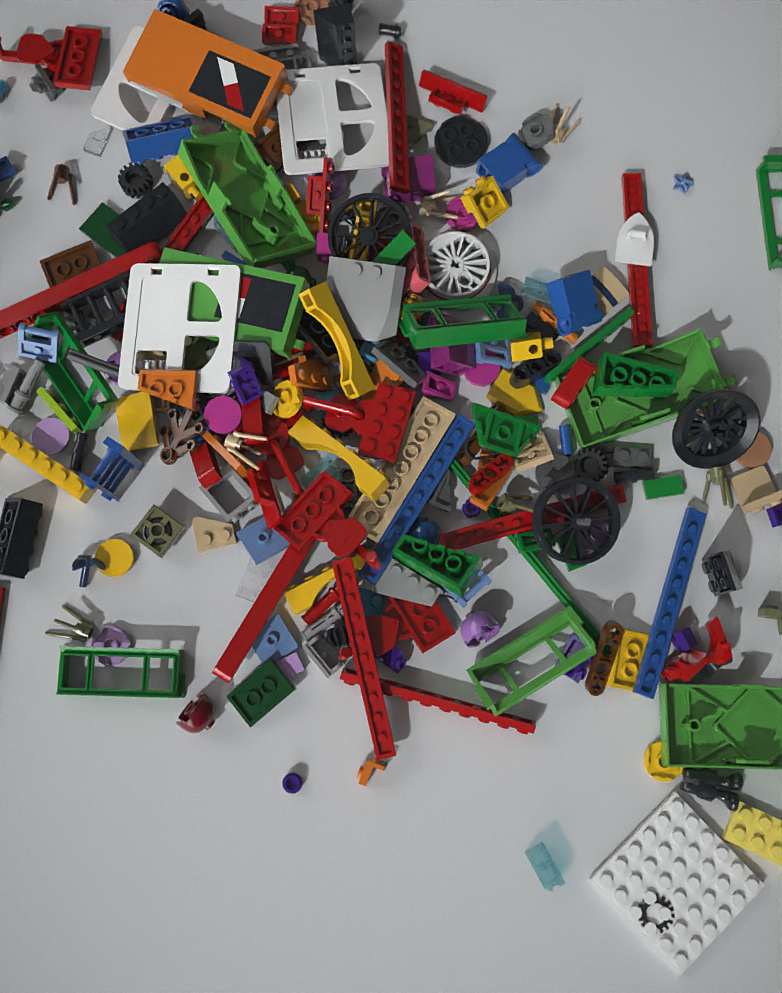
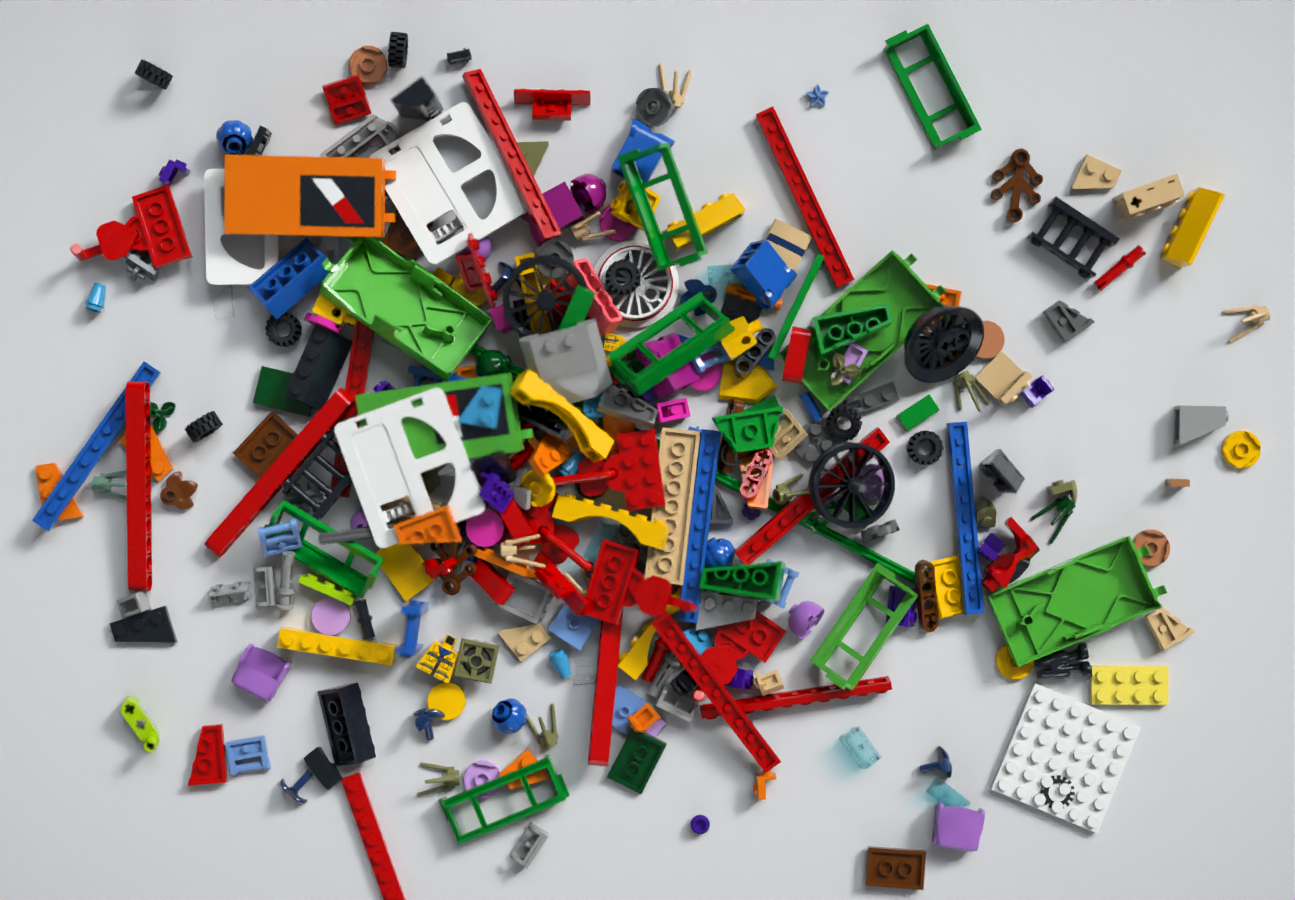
camera: 25 degrees left, 10 degrees up
(25, 226) = (203, 426): none -> black tyre
(61, 175) = (206, 357): reddish brown plant -> none
(109, 20) = (169, 171): none -> dark purple bracket
(122, 728) = (529, 845): none -> light grey hinge
(125, 516) = (440, 659): none -> torso
(158, 664) = (522, 760): none -> orange wing
(162, 595) = (509, 716): none -> blue plant
(165, 433) = (434, 570): none -> red bracket
(171, 183) = (322, 321): none -> dark pink tile
(187, 633) = (547, 738): none -> olive plant
(198, 714) = (590, 805): dark red cylinder -> none
(233, 569) = (560, 662): none -> dark azure cone
(269, 299) = (483, 408): none -> dark azure wing
(285, 654) = (643, 718): none -> orange bracket
(417, 674) = (768, 682): none -> tan bracket
(449, 174) = (589, 191): none -> magenta cylinder
(450, 242) = (631, 269): none -> black tyre
(460, 142) = (583, 146): black tile -> none
(463, 916) = (895, 868): none -> reddish brown plate
(478, 778) = (860, 747): none -> clear light blue hinge
(495, 155) = (646, 213): none -> green piece
(540, 242) = (709, 219): none -> yellow slope
(542, 903) = (957, 827): none -> medium lavender piece
(553, 832) = (943, 765): none -> dark blue plant
(581, 577) = (879, 531): none -> dark grey plate
(610, 408) = (851, 370): none -> olive plant
(619, 414) = (854, 355): none -> lavender tile
(633, 475) = (886, 413): black pin -> none
(635, 242) = (796, 182): white shield -> none
(667, 515) = (936, 447): none -> black tyre
(690, 607) = (985, 513): none -> olive plate
(768, 634) = (1064, 508): none -> dark green plant

